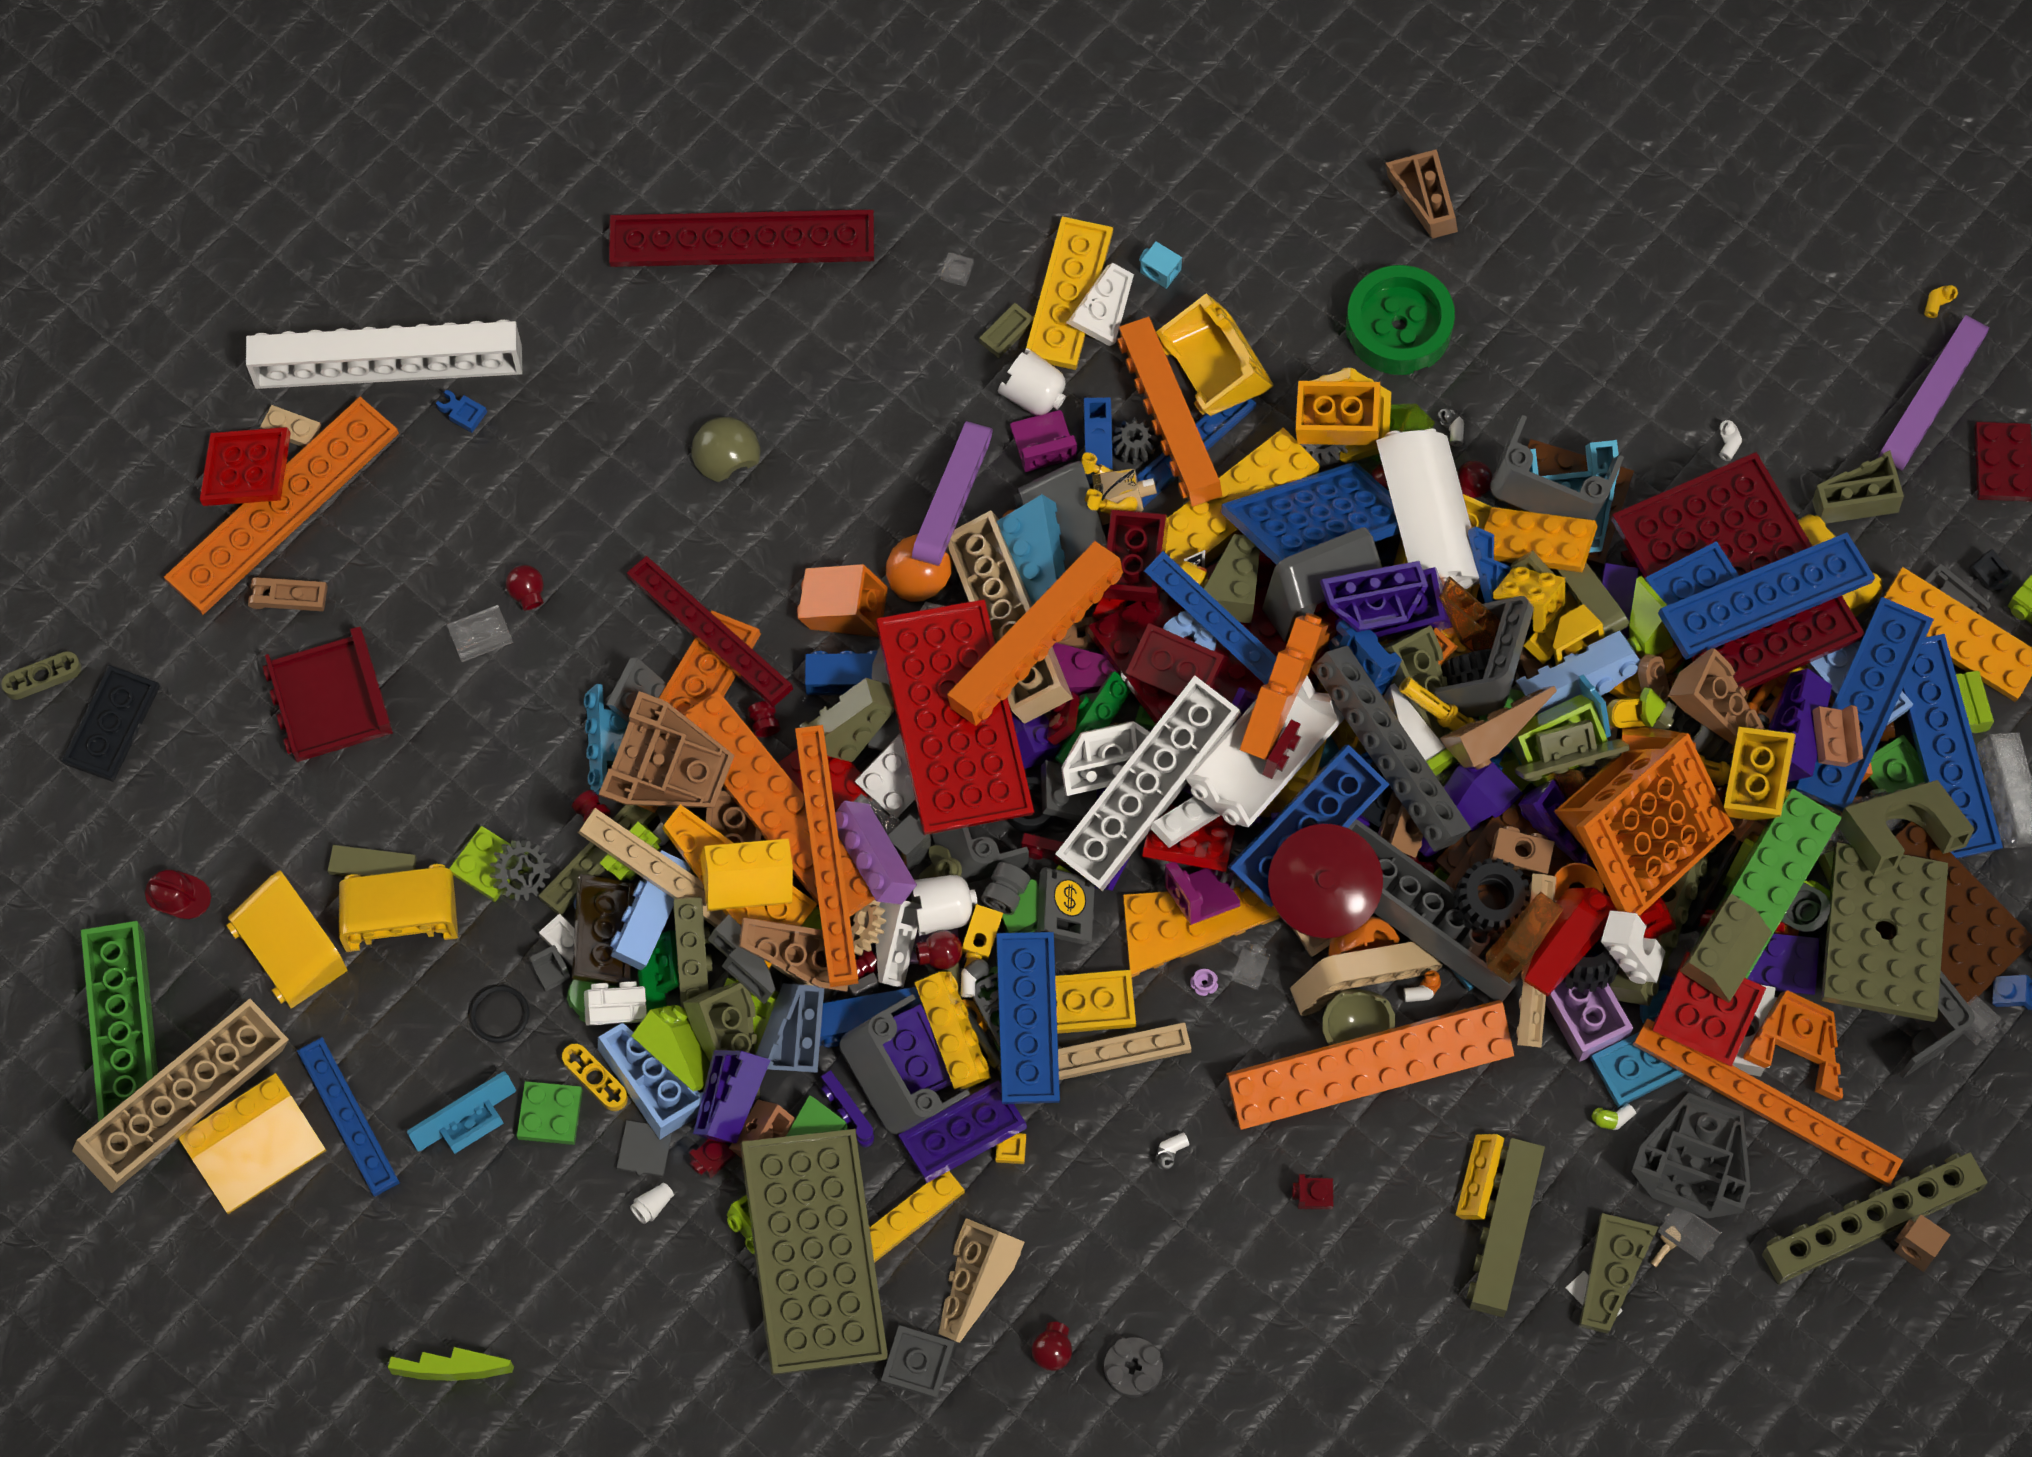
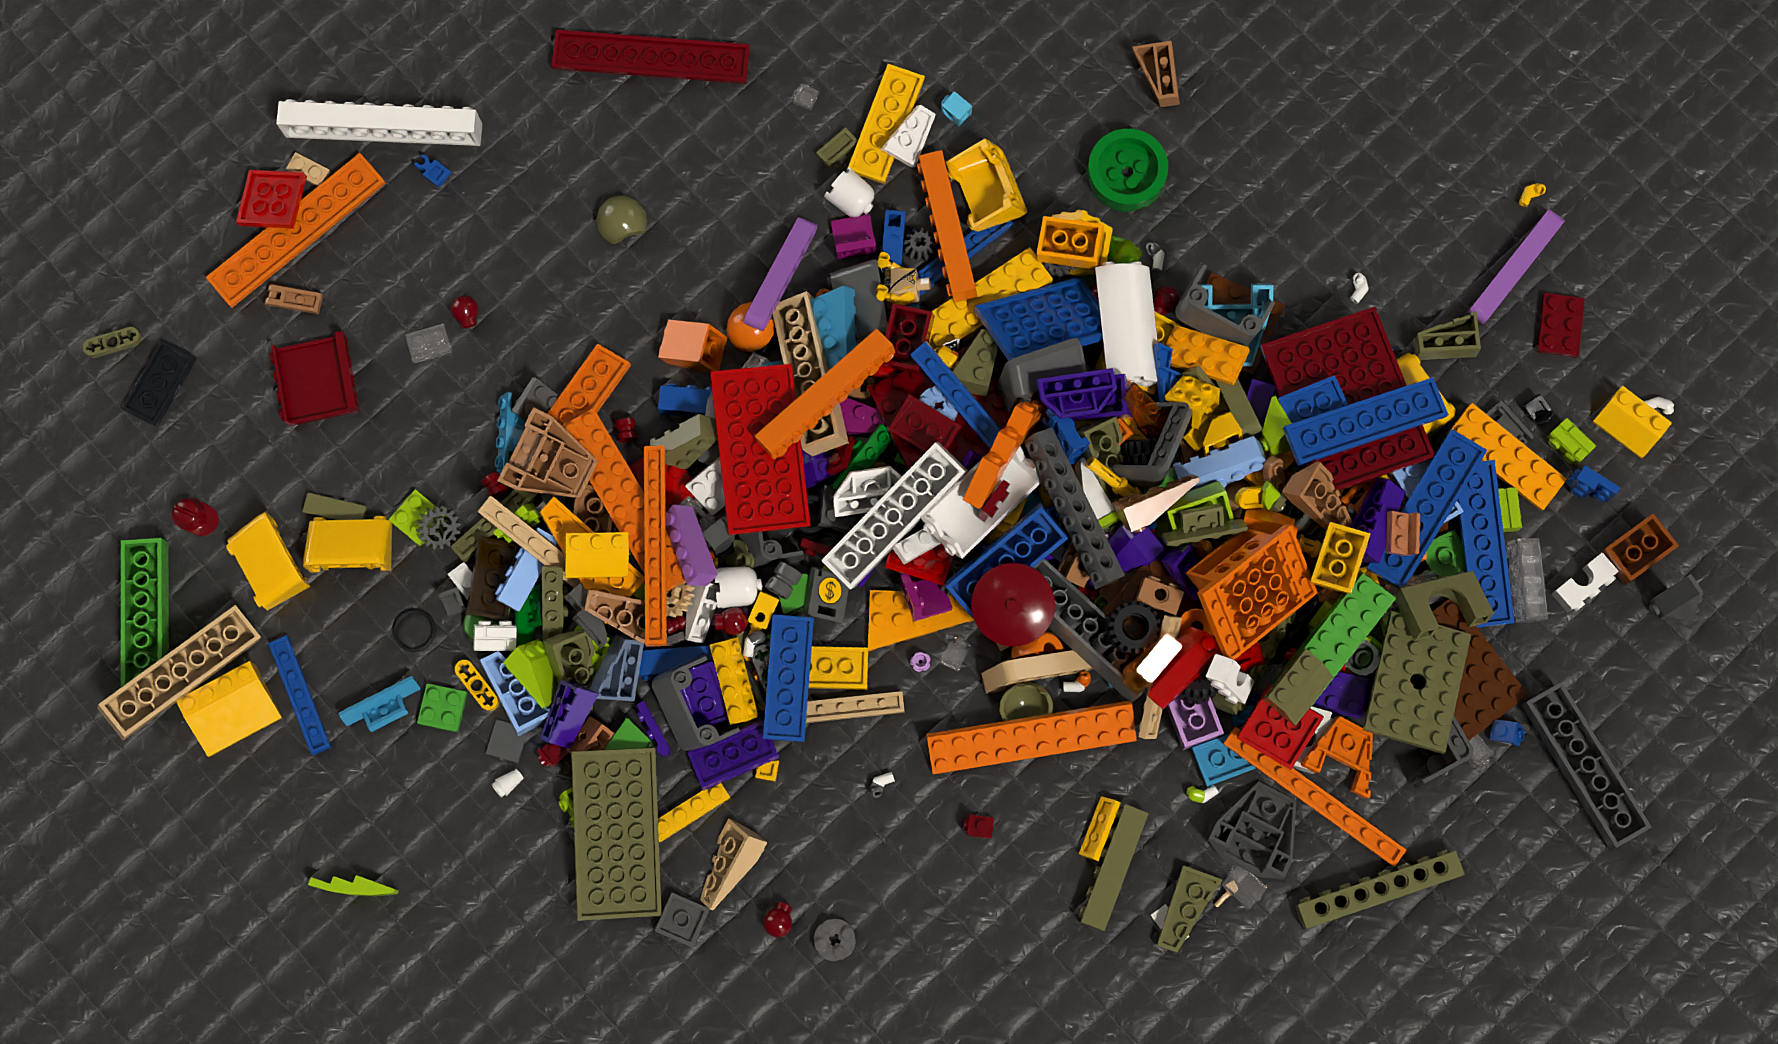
camera: 10 degrees right, 10 degrees up
(710, 631) = (593, 361): dark red plate -> none
(1590, 692) = (1224, 481): dark azure piece -> none
(1920, 1242) = (1409, 913): medium nougat brick -> none

